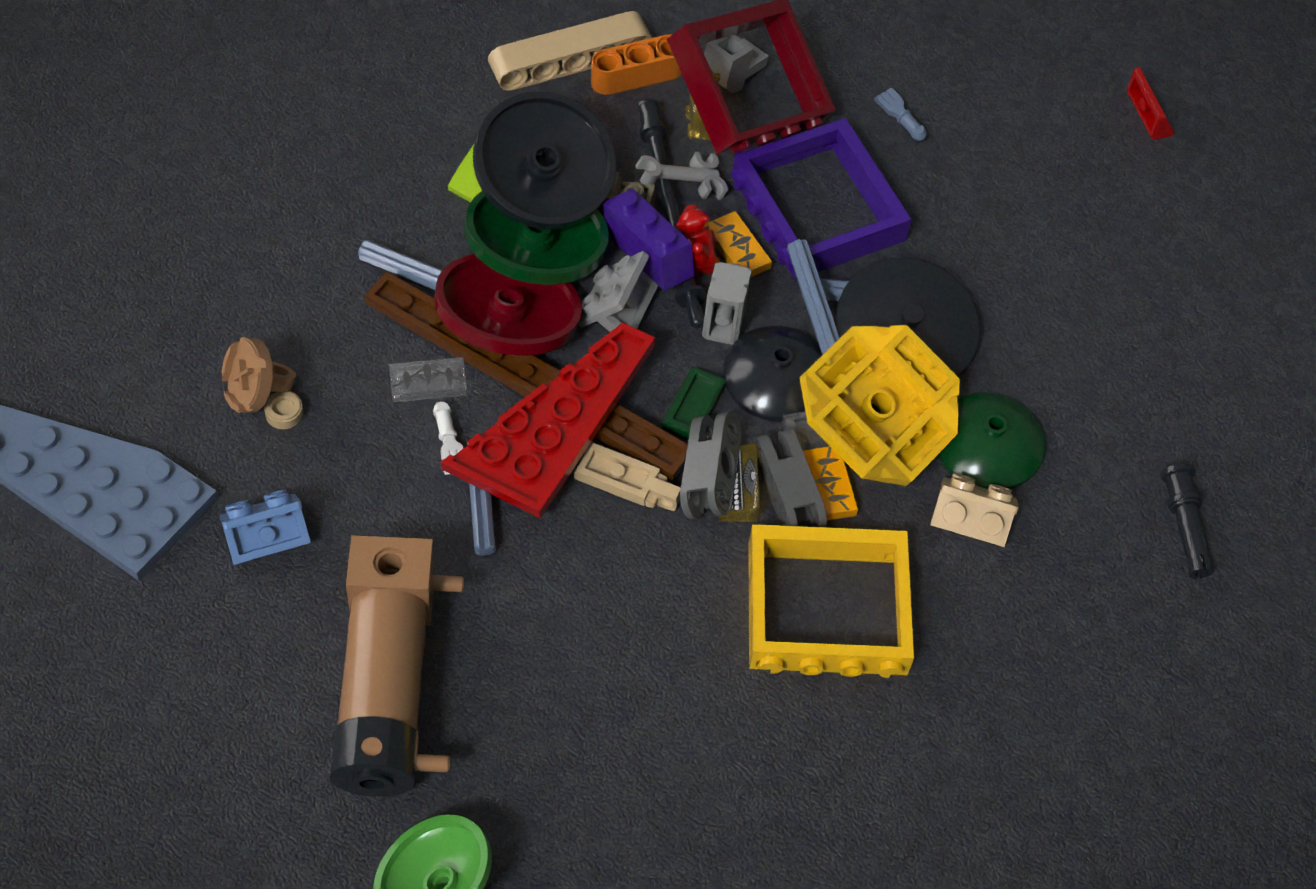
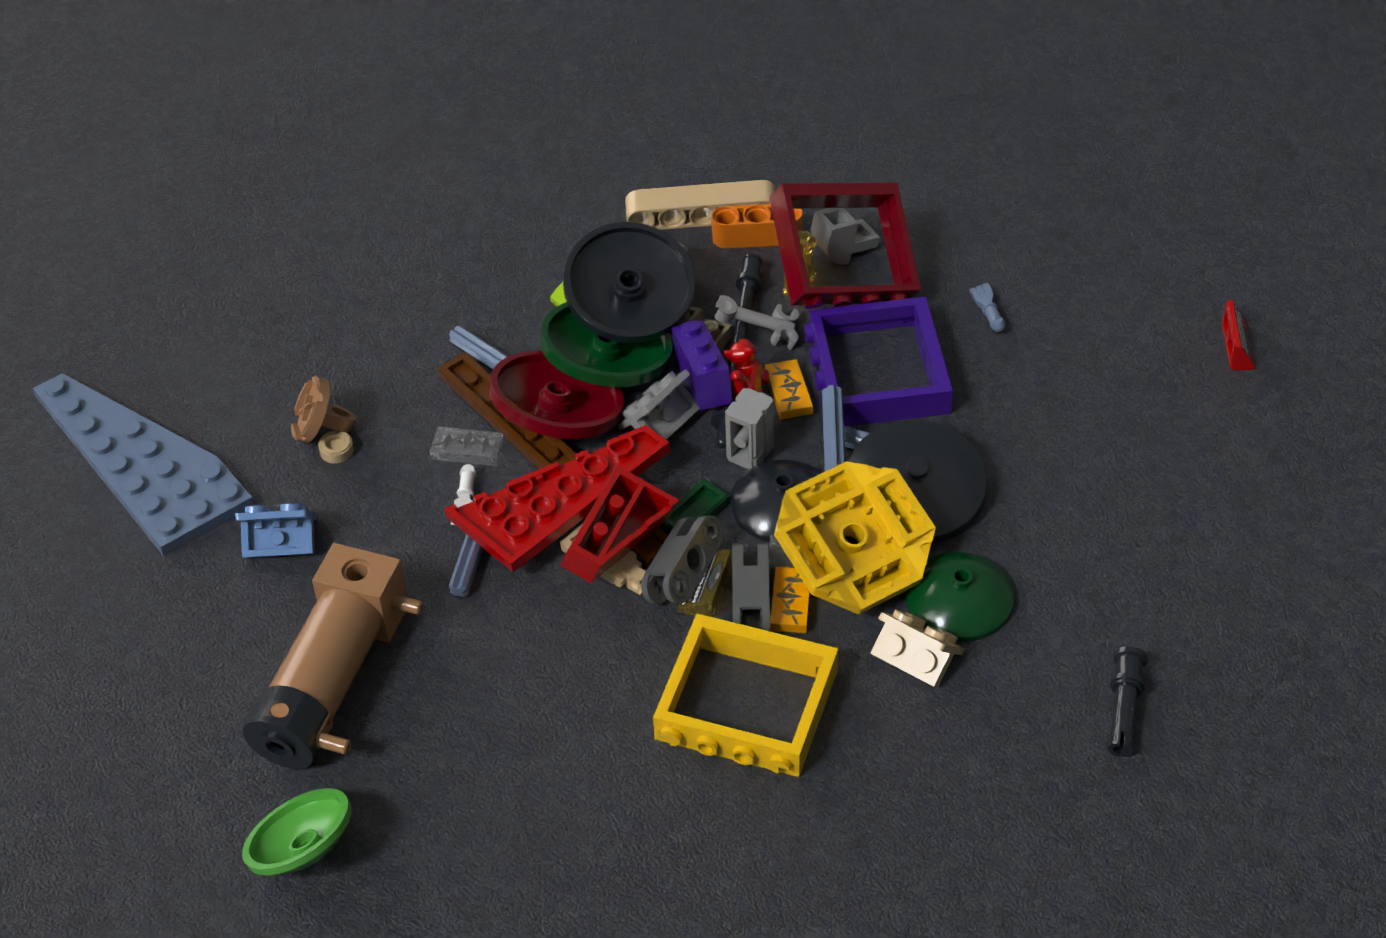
camera: 25 degrees right, 10 degrees down
(635, 444) = (617, 523): none -> red wedge

